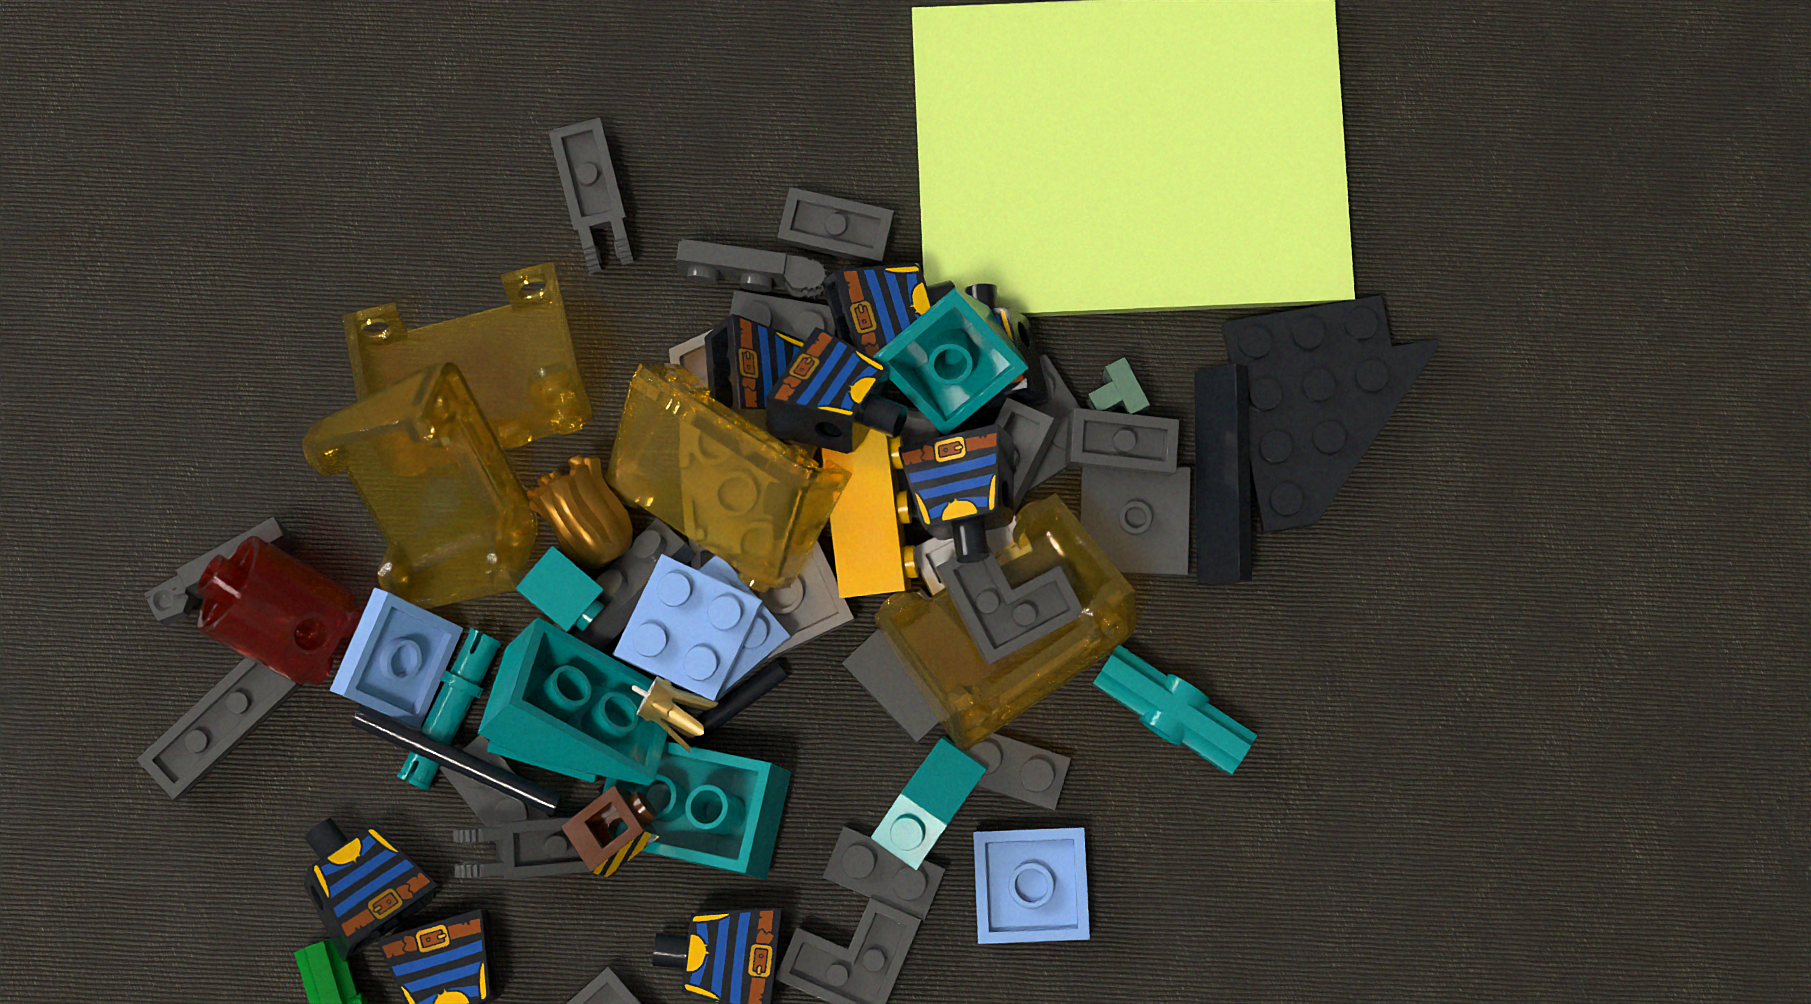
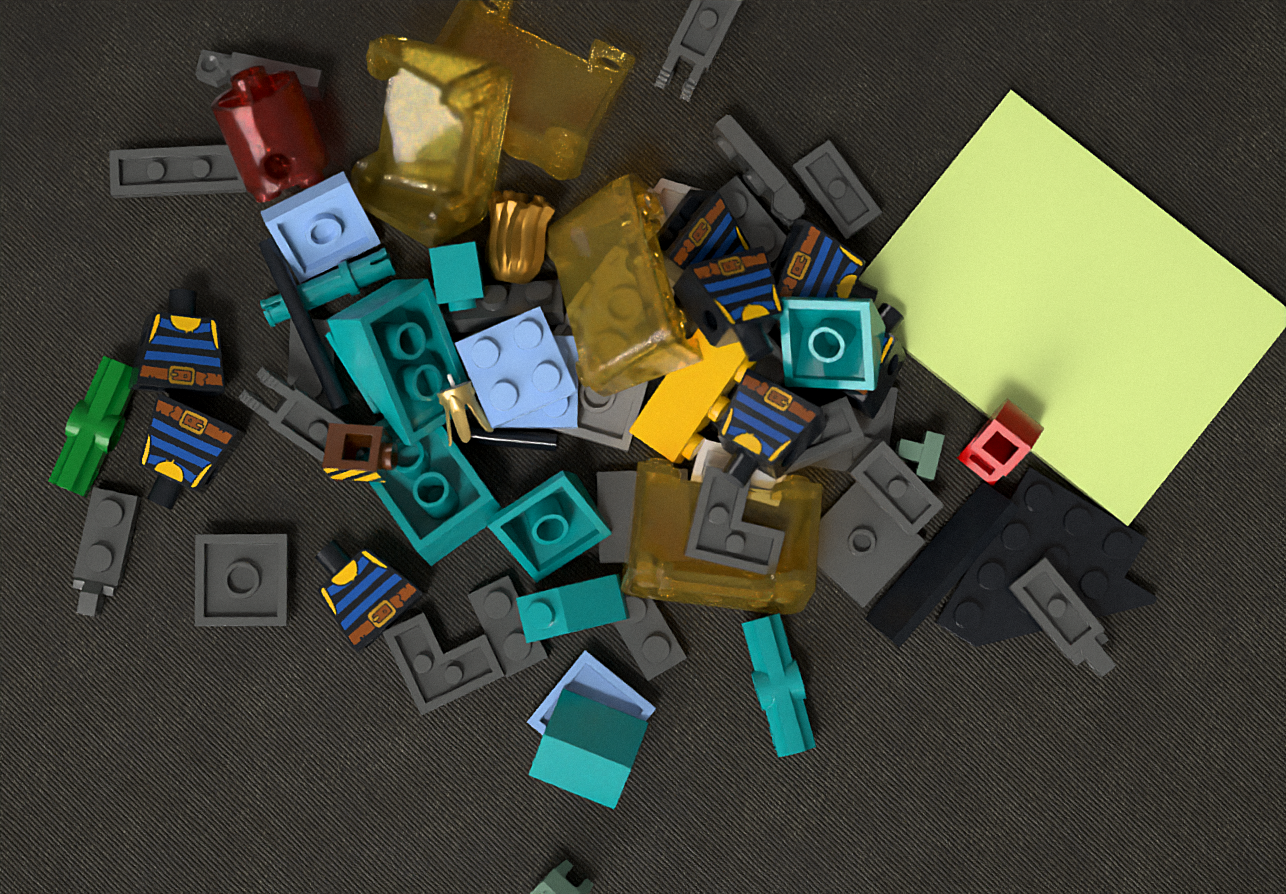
camera: 40 degrees right, 5 degrees up
(843, 746) = (550, 525): none -> teal slope
(1056, 917) = (588, 748): none -> teal slope
(1180, 321) = (1001, 442): none -> red brick
(1370, 426) = (1063, 616): none -> dark grey hinge

